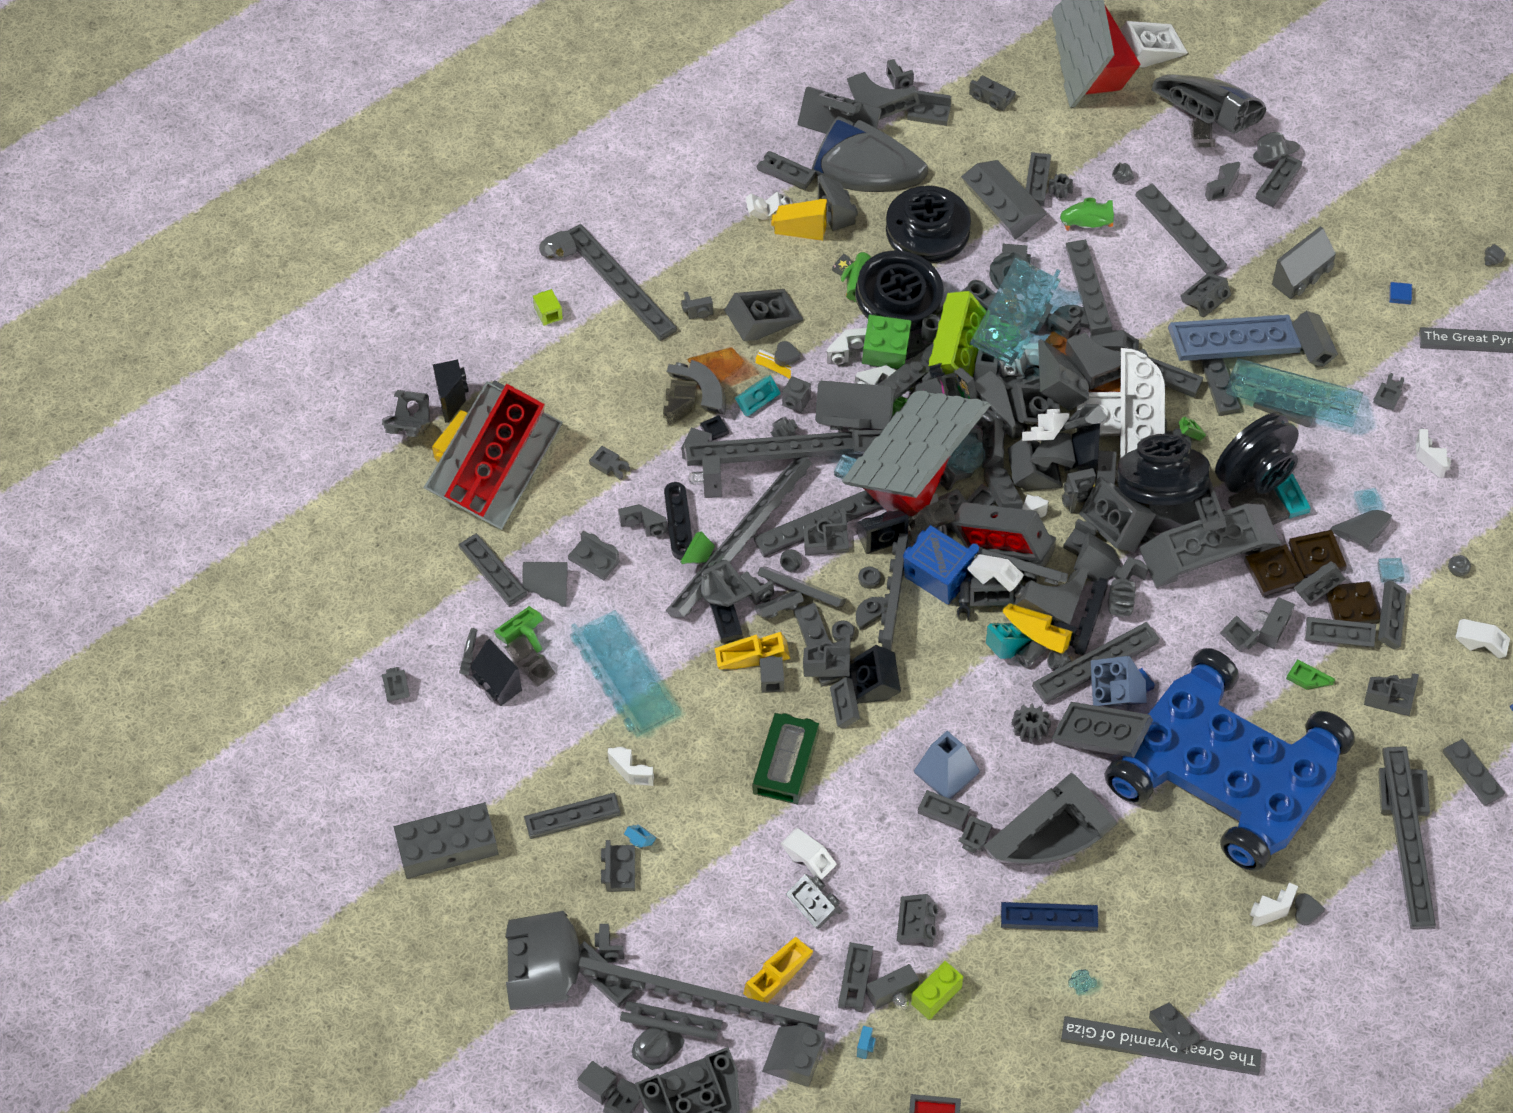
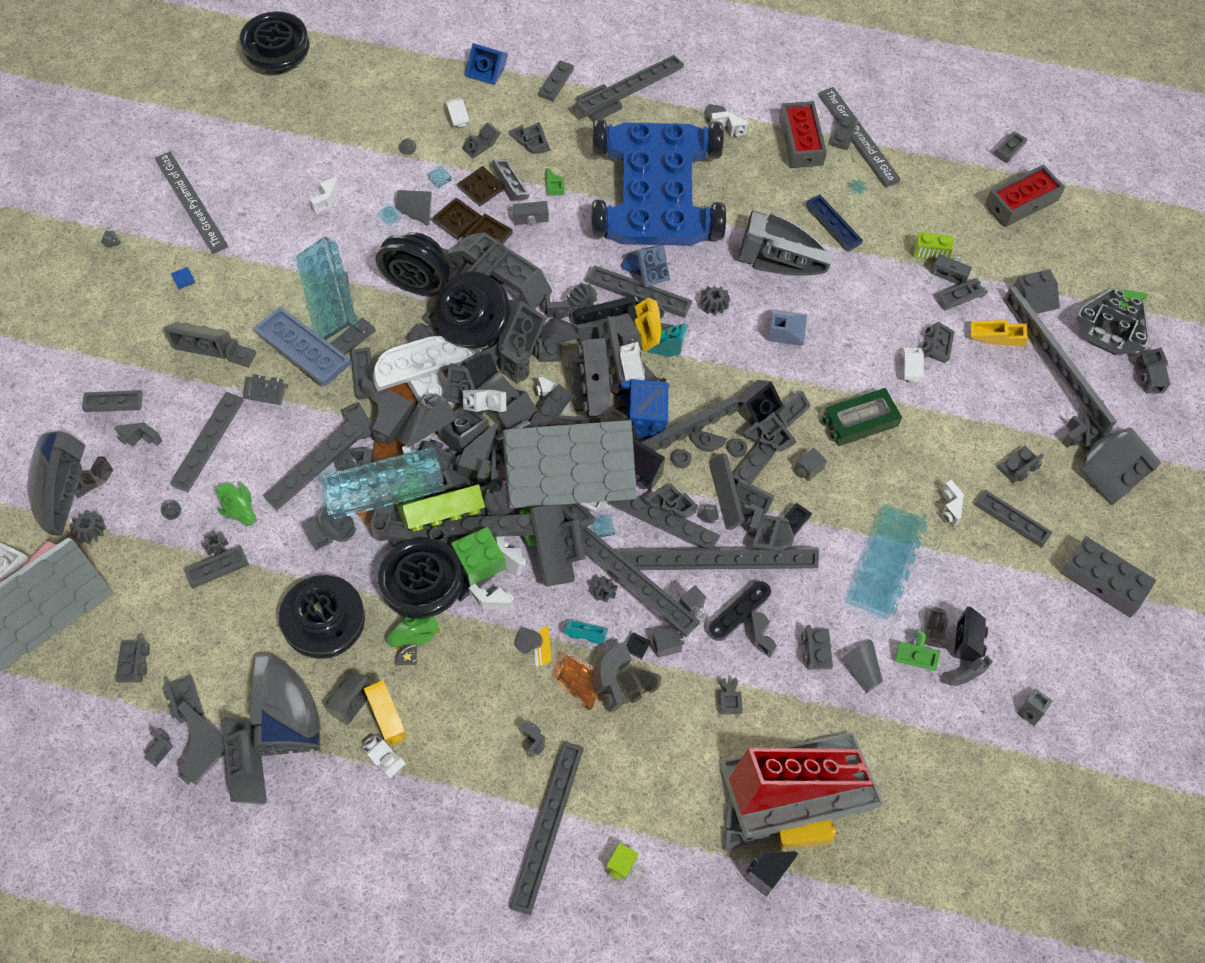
camera: 130 degrees left, 5 degrees up
(403, 420) = (823, 885): dark grey piece -> none
(492, 569) = (887, 715): dark grey tile -> none
(557, 245) = (551, 905): dark grey rock -> none
(639, 836) = (991, 464): dark azure plate -> none
(656, 1047) = (1100, 368): dark grey piece -> none
(681, 1027) = (1085, 355): dark grey bar -> none
(698, 550) = (758, 575): bright green tile -> none
(749, 651) = (803, 489): yellow slope -> none
(761, 313) = (503, 681): dark grey slope -> none
(786, 170) = (331, 770): dark grey plate -> none
(796, 394) = (567, 601): dark grey brick -> none
(866, 1042) = (996, 263): dark azure plate -> none
(917, 919) = (901, 284): dark grey bracket -> none
(943, 810) = (815, 312): dark grey plate -> none
(975, 834) = (819, 286): dark grey bracket -> none
(1003, 197) = (256, 574): dark grey slope -> none
(1102, 729) = (693, 252): dark grey plate -> none
(1147, 111) = (87, 527): none -> dark grey gear
(1191, 428) = (406, 332): bright green tile -> none
(1200, 968) = (802, 134): none -> brick
(1239, 634) = (555, 225): dark grey bracket -> none
(1266, 294) = (239, 354): none -> dark grey bracket
(1273, 147) = (79, 418): dark grey piece -> none
(1314, 338) = (267, 301): dark grey brick -> none
(1320, 583) = (483, 200): dark grey bracket -> none
(1389, 393) = (287, 241): dark grey plate -> none
(1392, 615) = (475, 161): dark grey plate -> none
(1420, 637) = (478, 144): none -> dark grey slope

